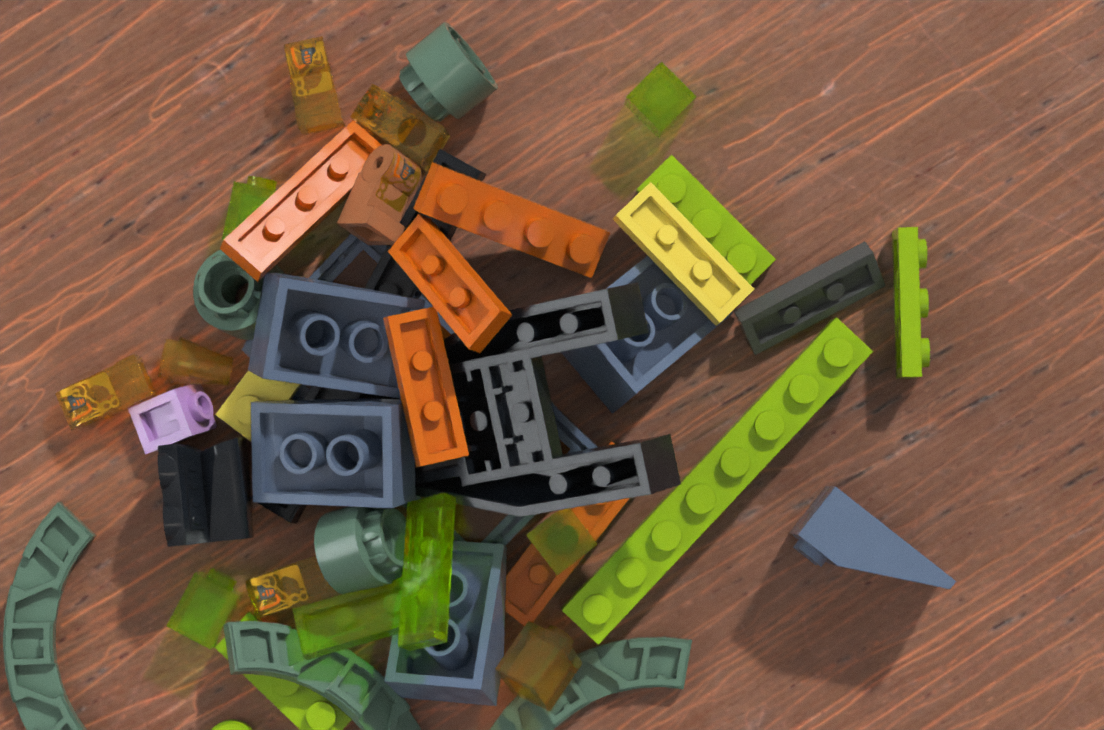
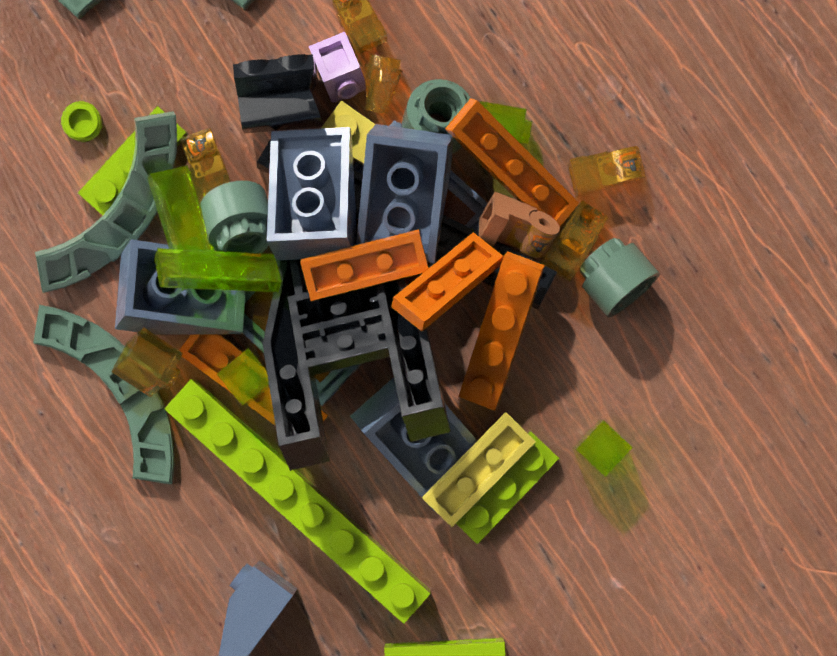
camera: 90 degrees right, 0 degrees up
(206, 607) = (188, 97): clear neon green brick -> none
(810, 298) = (446, 572): dark grey plate -> none

